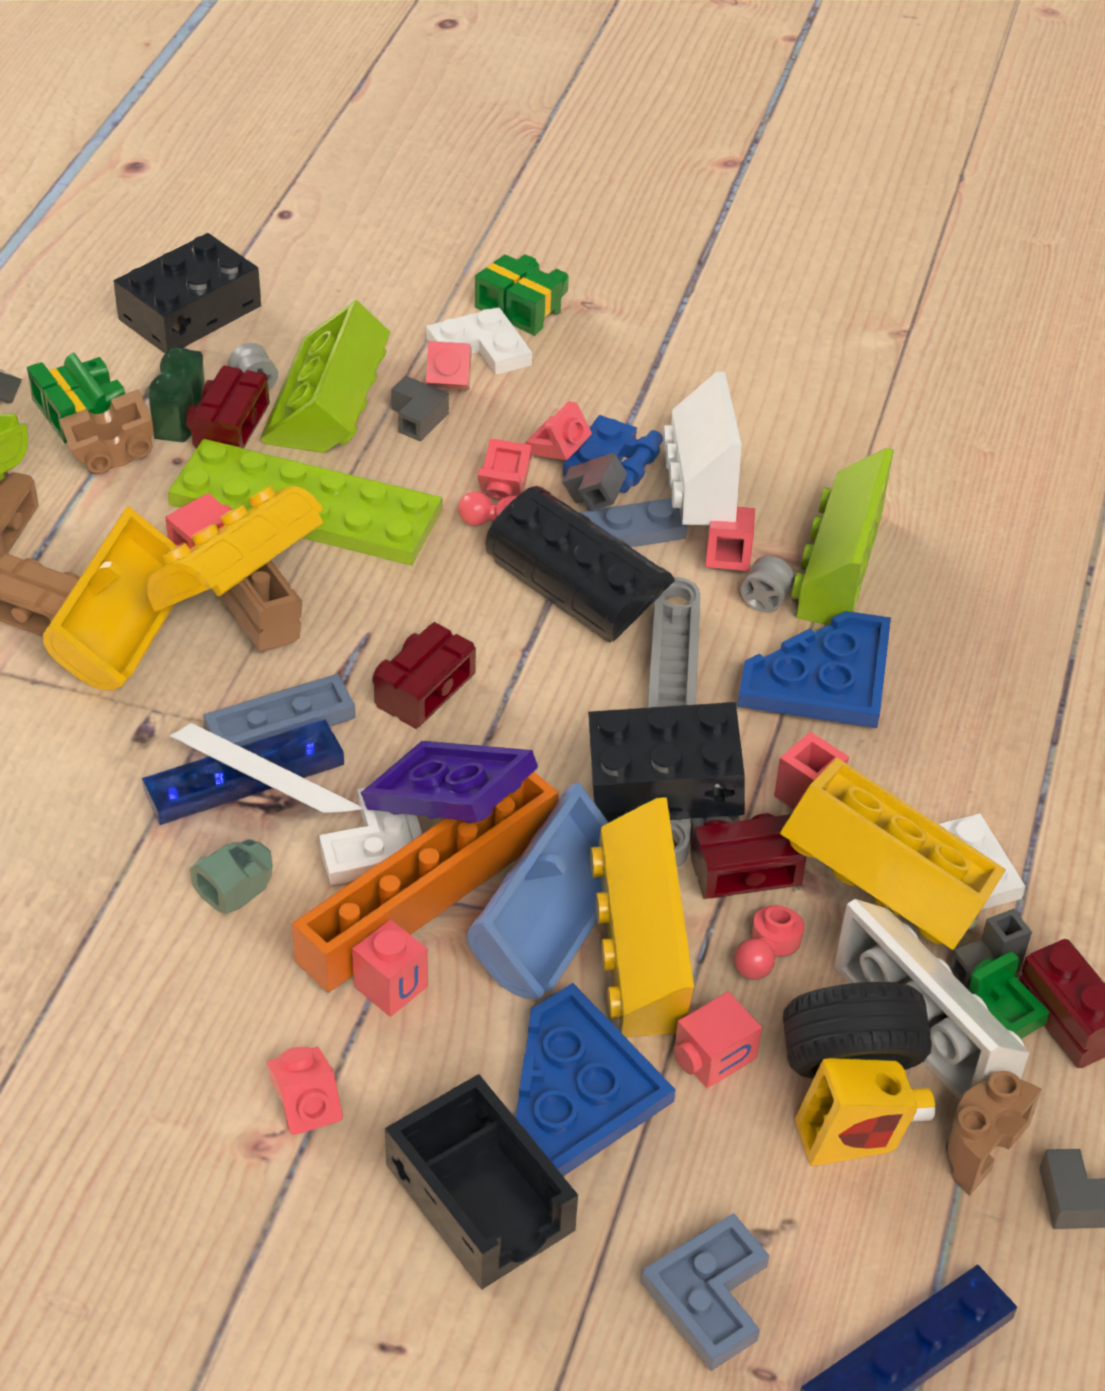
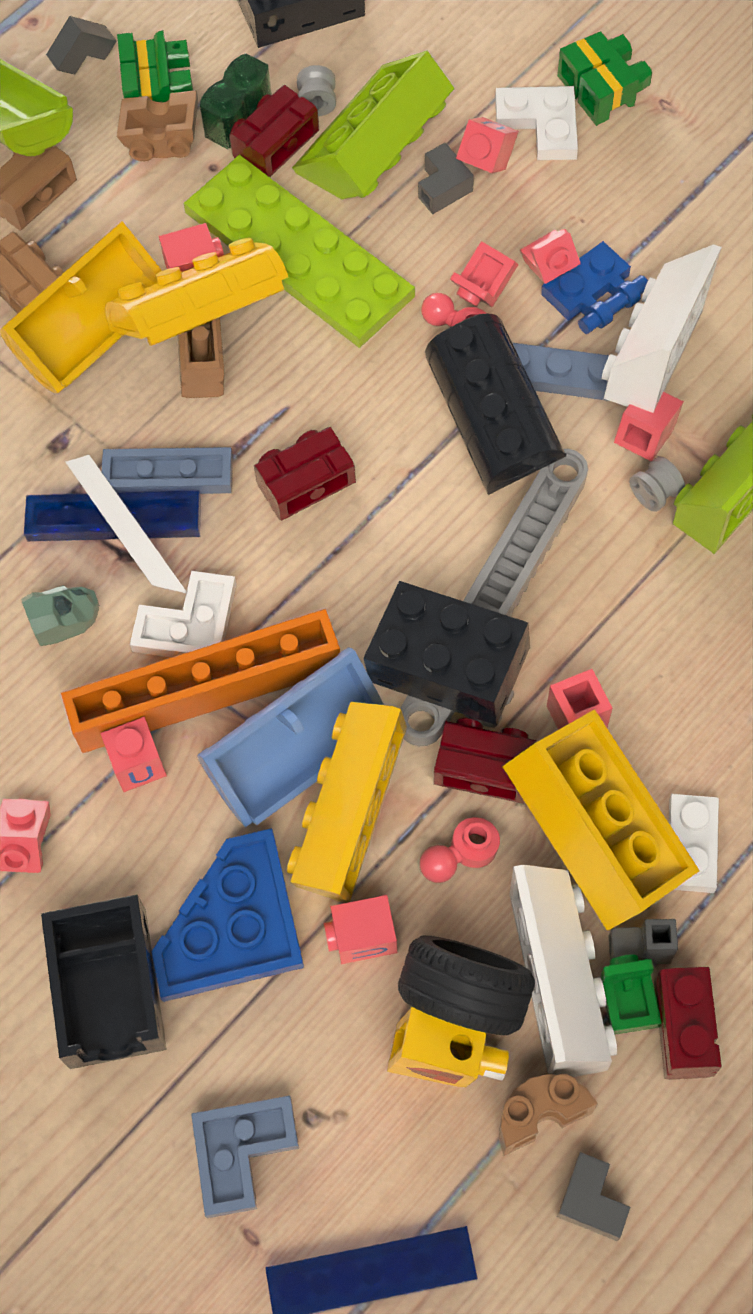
camera: 30 degrees right, 20 degrees up
(450, 781) = (252, 604): dark purple plate -> none
(596, 481) = (556, 319): dark grey piece -> none
(823, 672) = (660, 596): blue plate -> none

